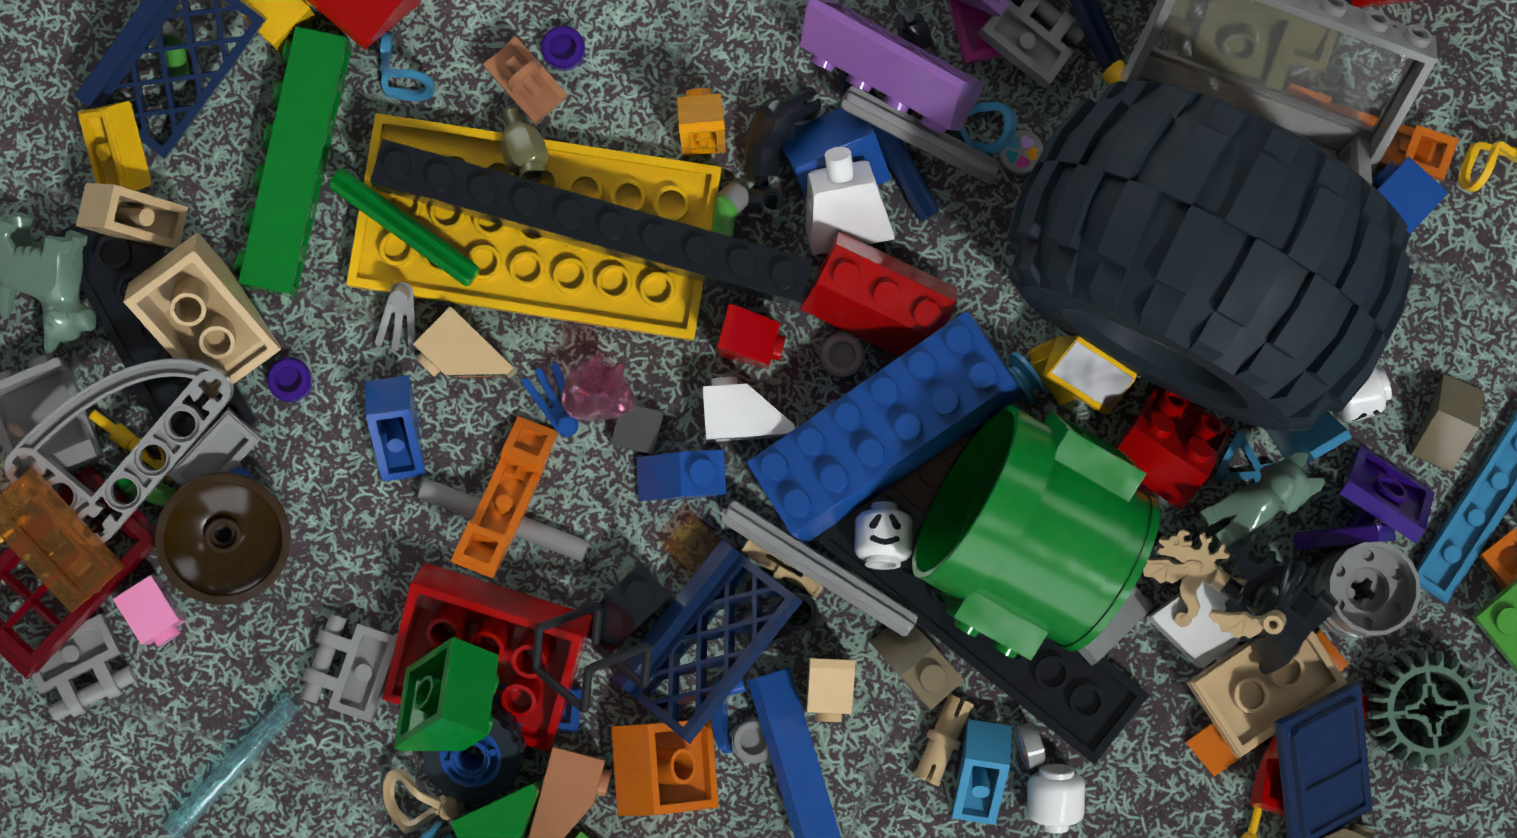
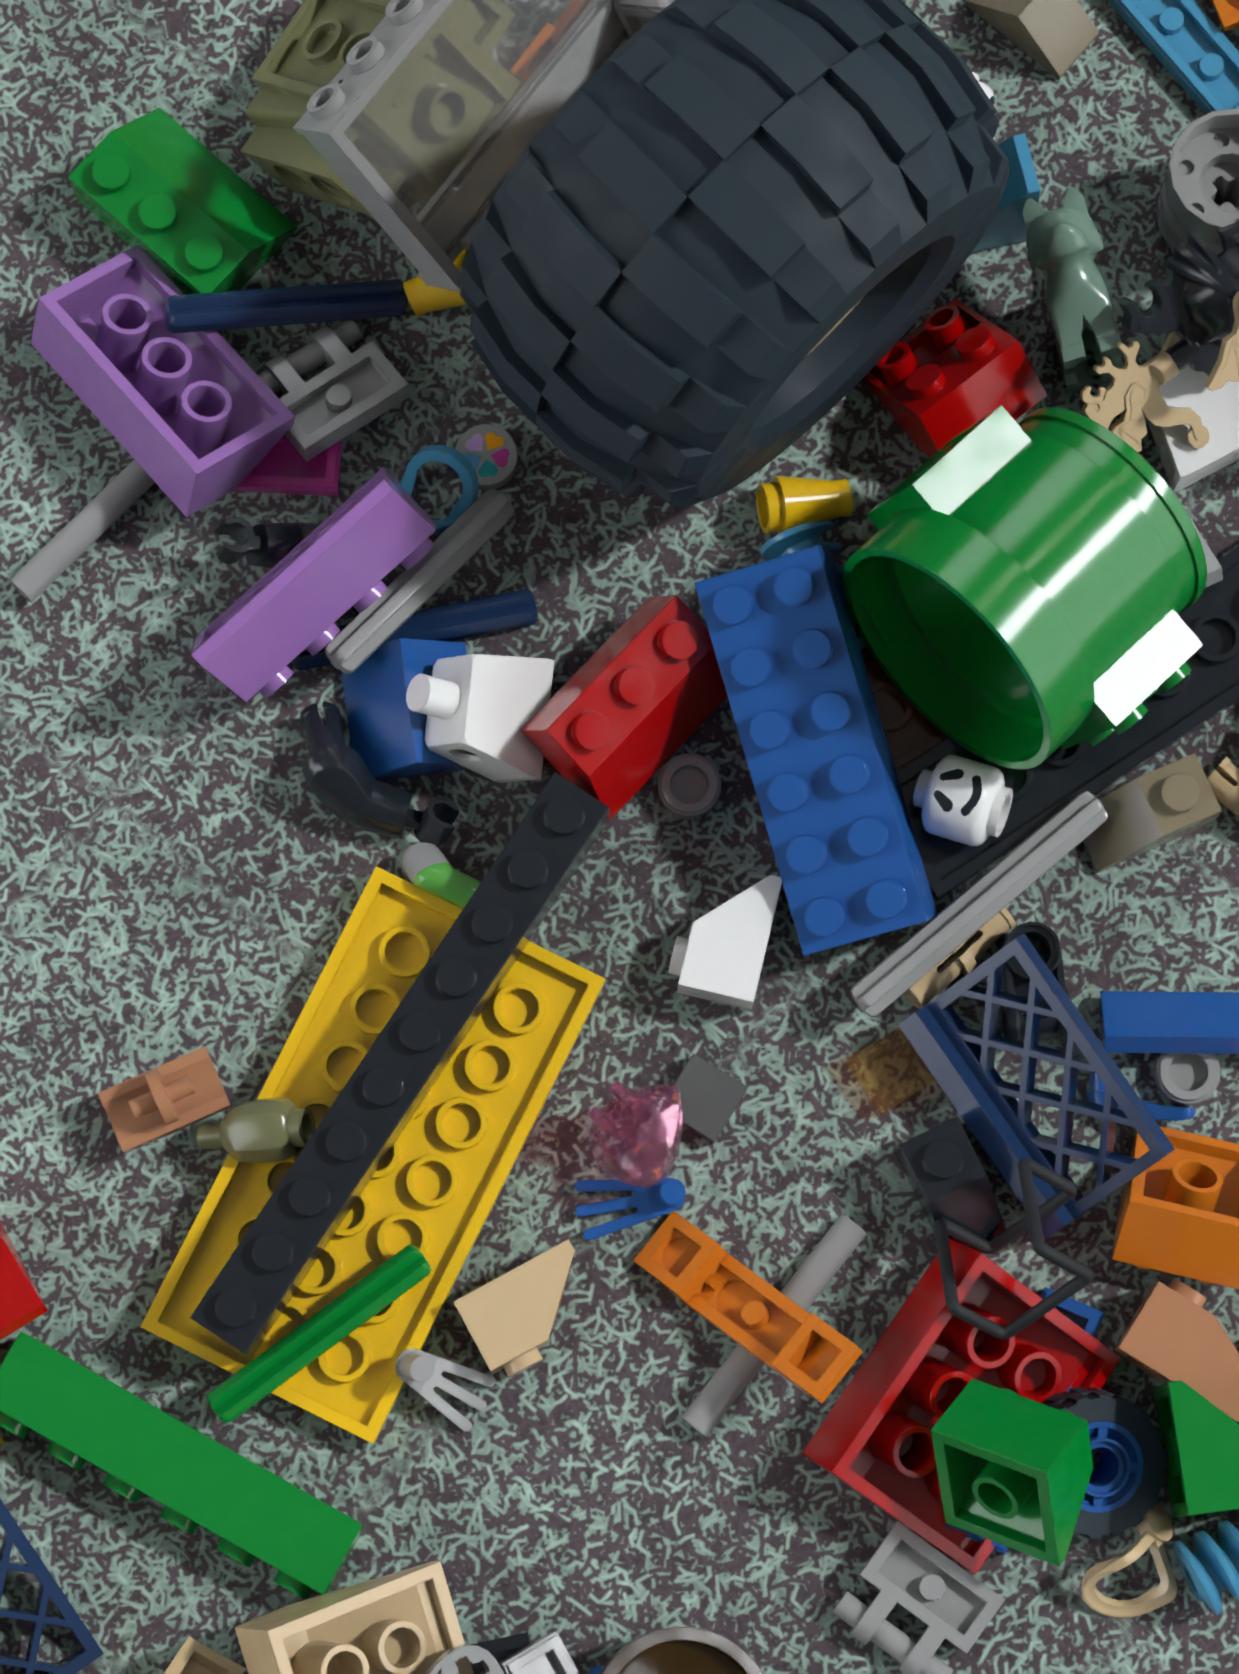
camera: 70 degrees left, 5 degrees down
(289, 379) = (480, 1569): dark purple tile -> none
(394, 427) = (598, 1436): blue slope -> none
(398, 93) = (85, 1294): dark azure piece -> none
(563, 48) = (133, 1037): dark purple tile -> none
(681, 475) = (791, 1055): blue slope -> none
(701, 122) = (306, 870): light orange slope -> none
(750, 338) = (629, 900): red slope -> none
(830, 688) = (1147, 940): tan slope -> none
(1088, 373) = (822, 458): flat silver slope -> none
(1239, 440) = (1024, 277): dark azure piece -> none
(1343, 536) = (1148, 192): dark purple tile -> none
(1386, 495) = (1109, 123): dark purple tile -> none

